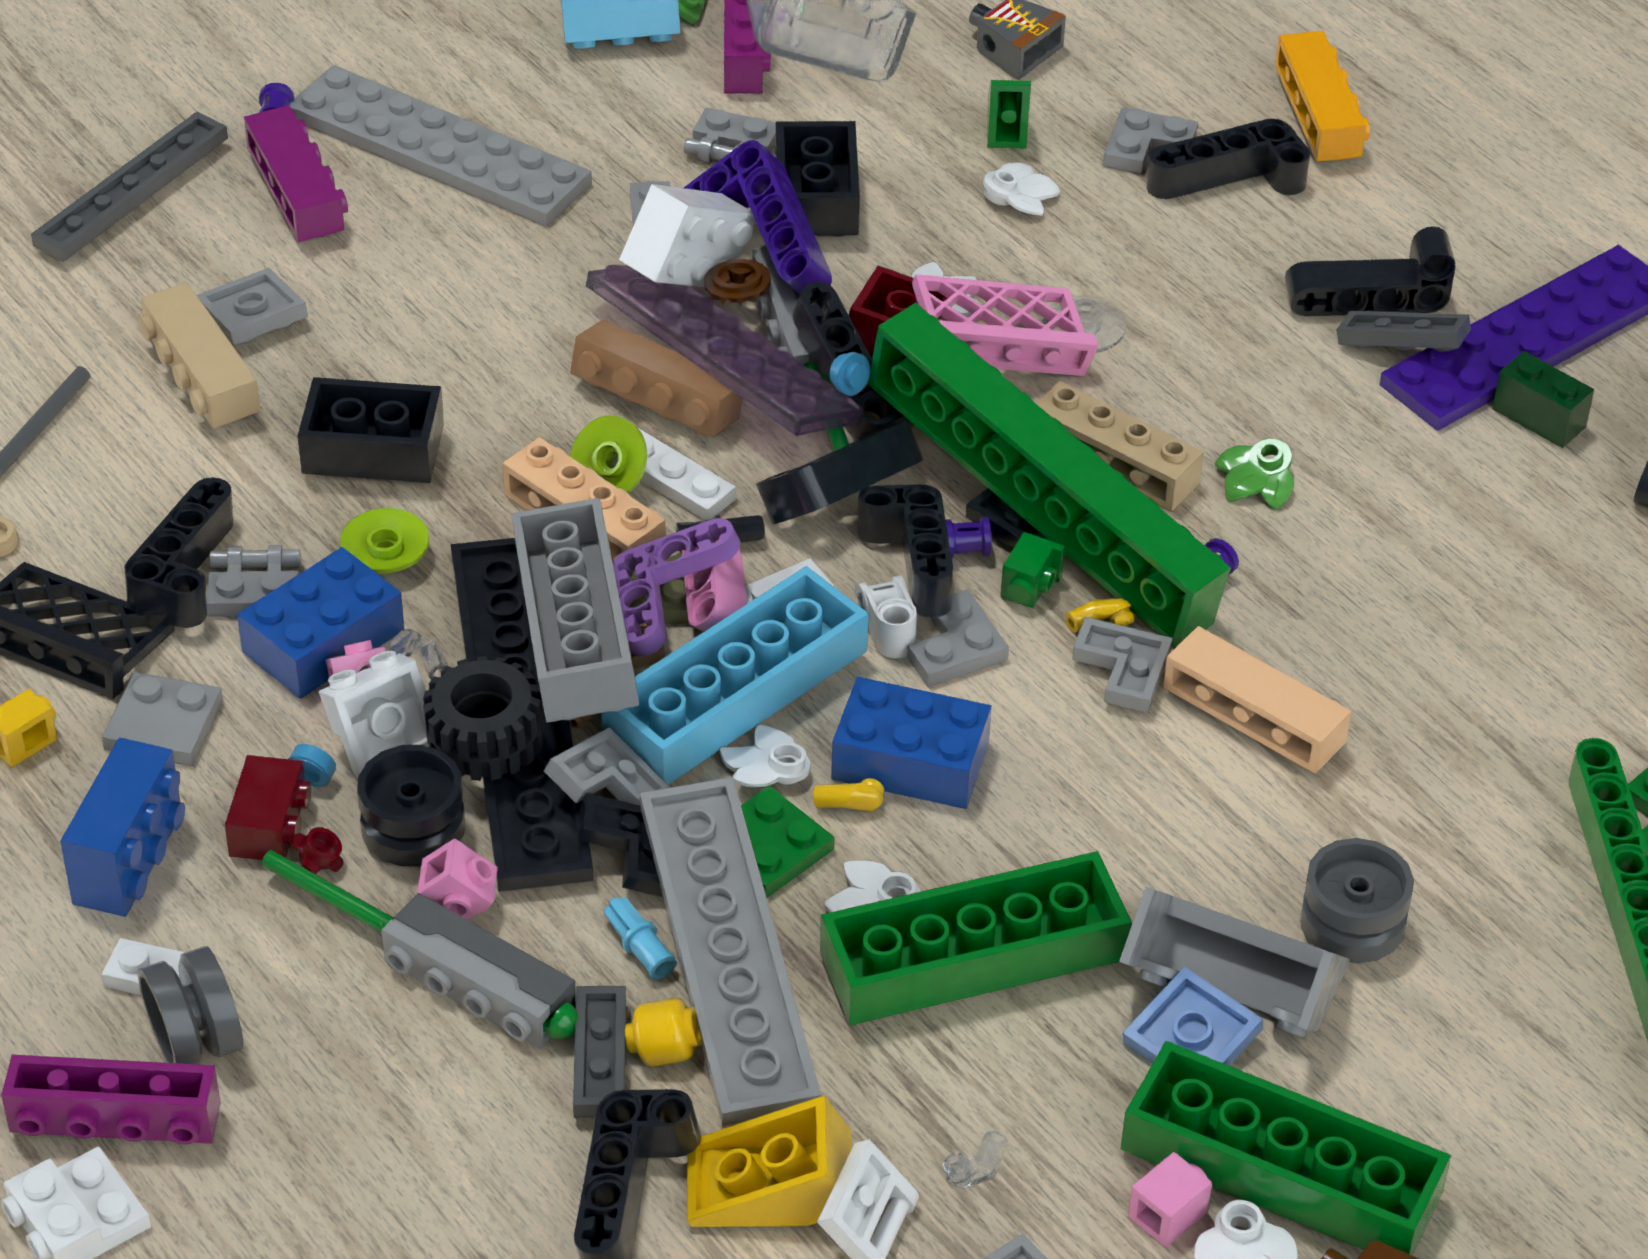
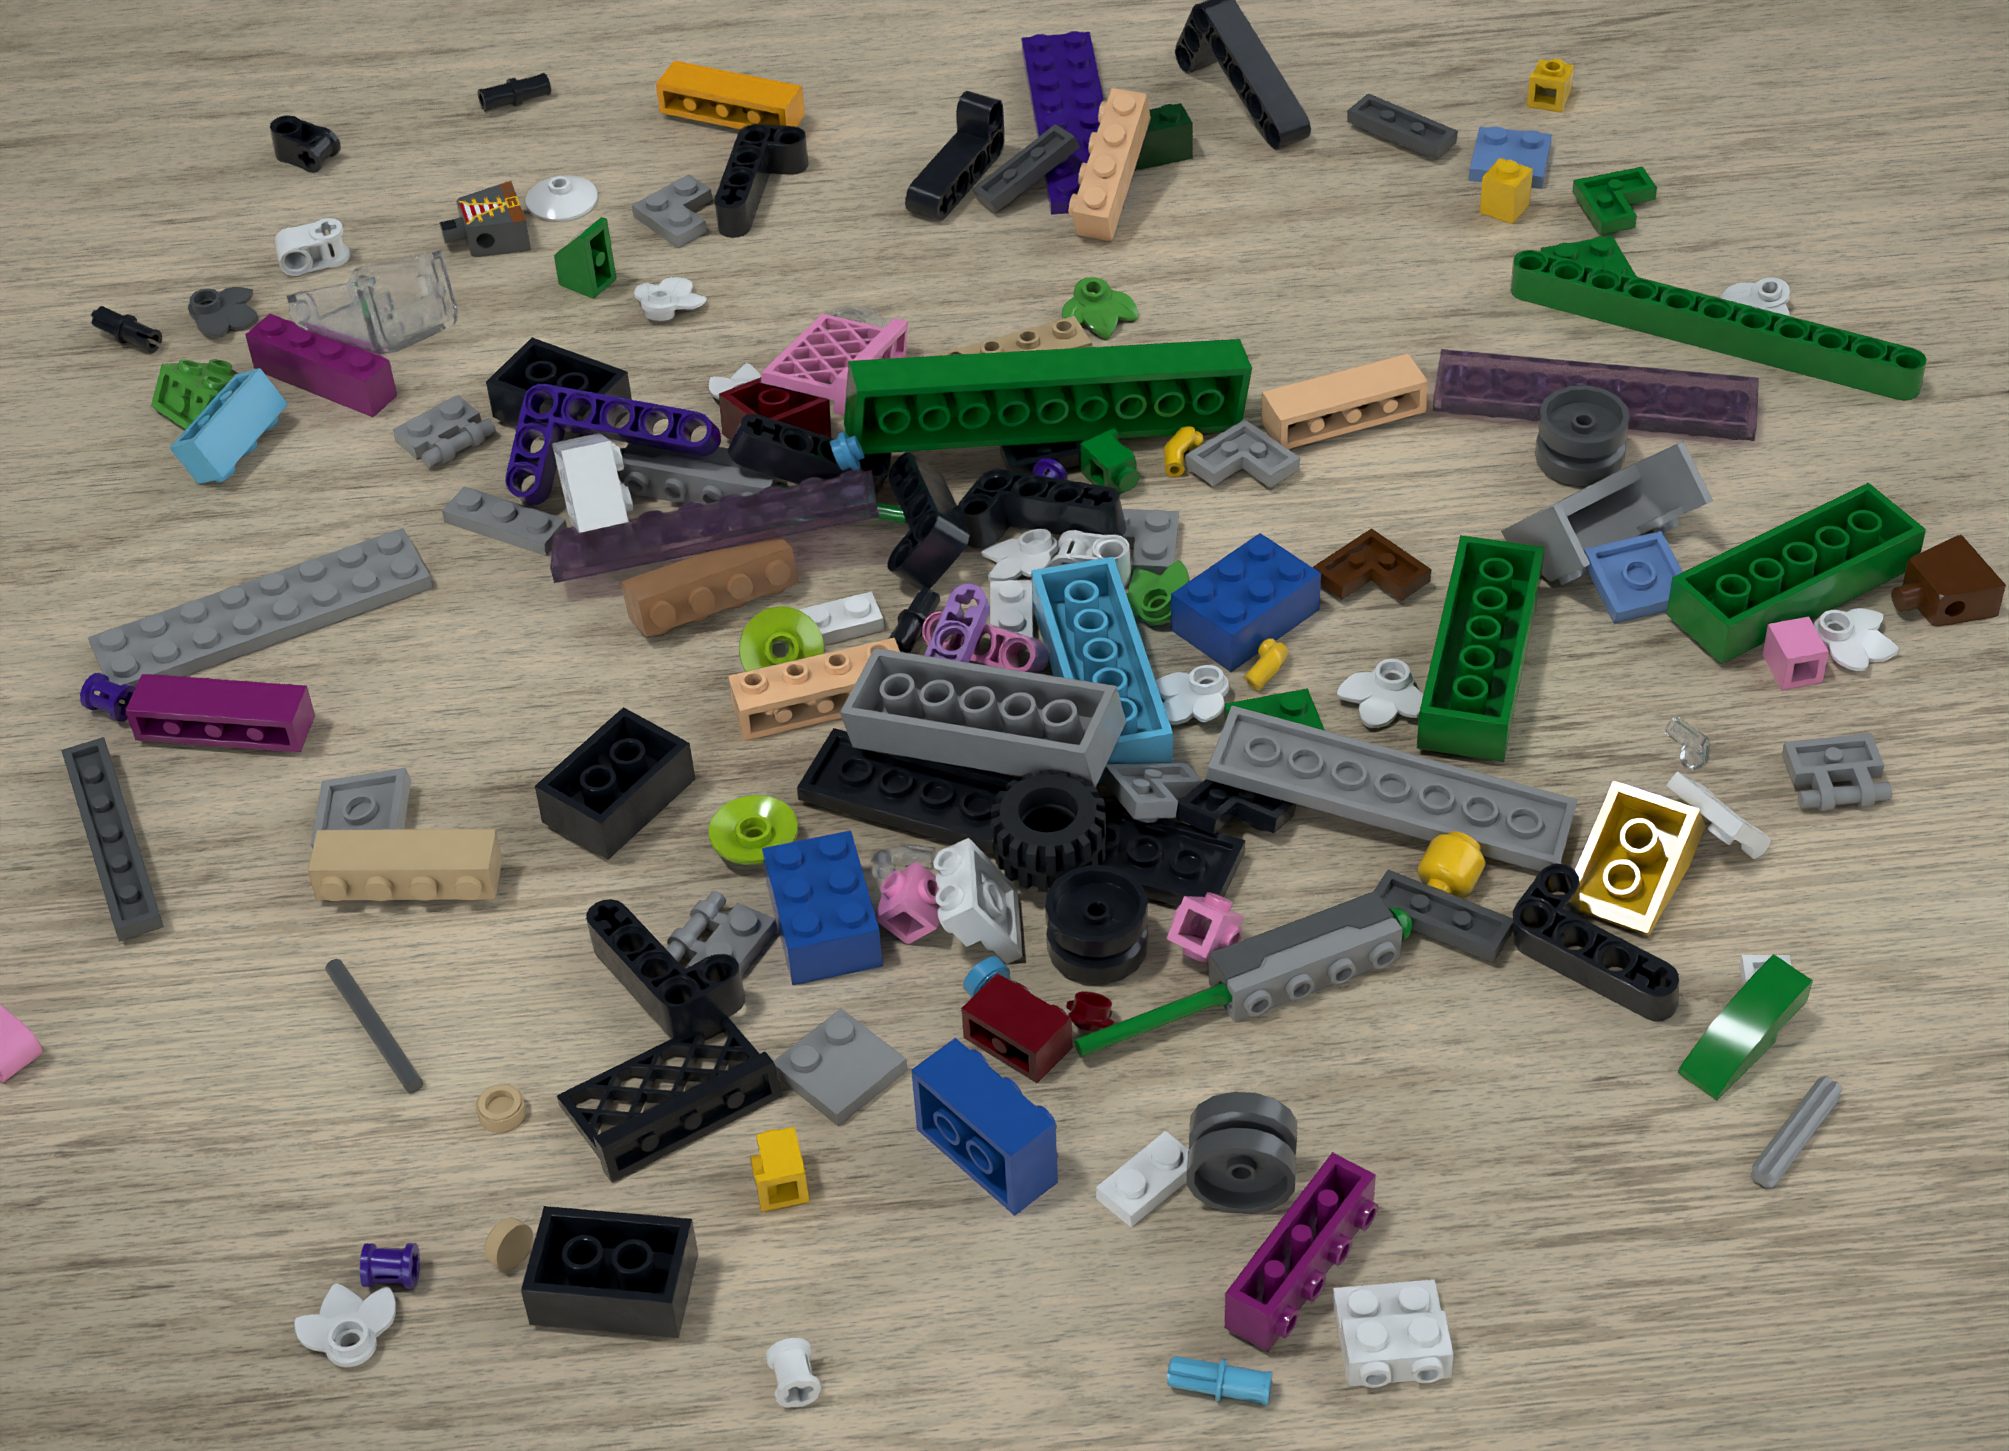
camera: 55 degrees left, 0 degrees up
(640, 938) = (1331, 845): medium azure axle -> none
(748, 279) = (643, 476): reddish brown gear -> none
(864, 564) = (1021, 555): none -> white plate
(895, 670) = (1151, 593): none -> bright green plate
(1048, 811) = (1372, 559): none -> reddish brown plate
(1102, 64) = (561, 198): none -> white dish
(1444, 378) = (1110, 165): none -> light nougat brick
(1457, 901) = (1655, 397): none -> clear purple plate

